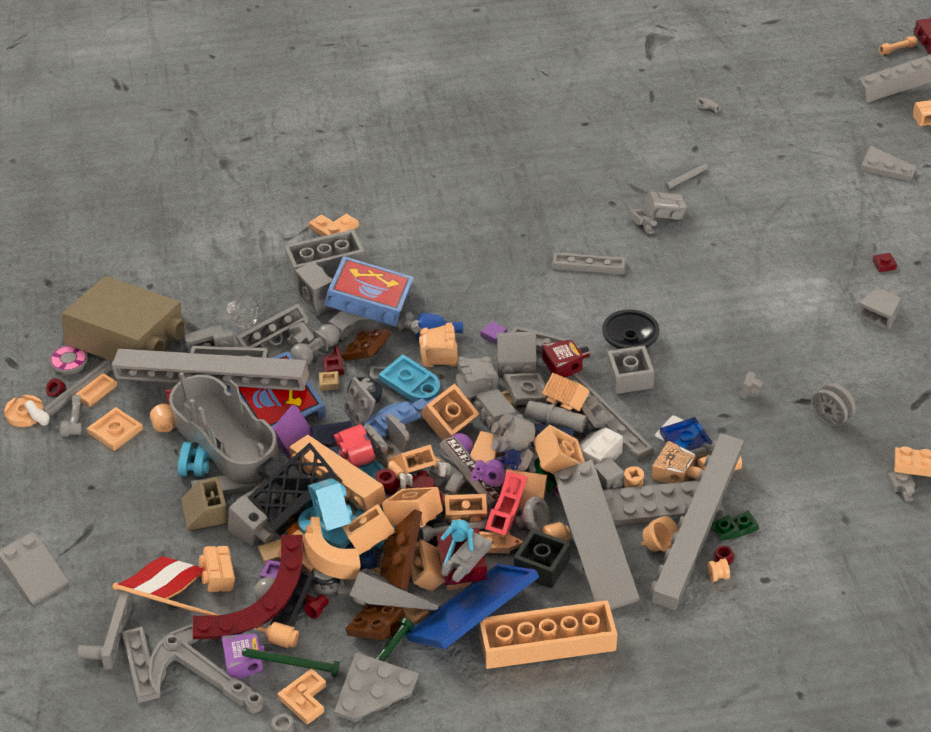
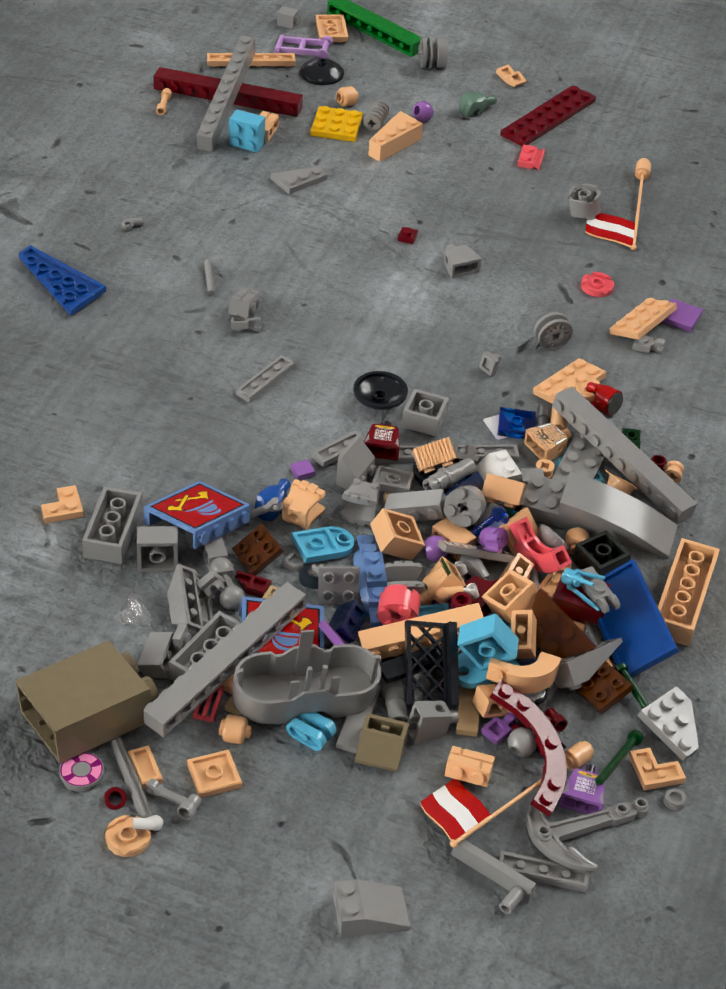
camera: 65 degrees left, 0 degrees up
(591, 106) = (65, 283): none -> blue wing
(779, 459) = (586, 381): none -> light nougat plate
(904, 102) = (247, 130): none -> medium azure brick

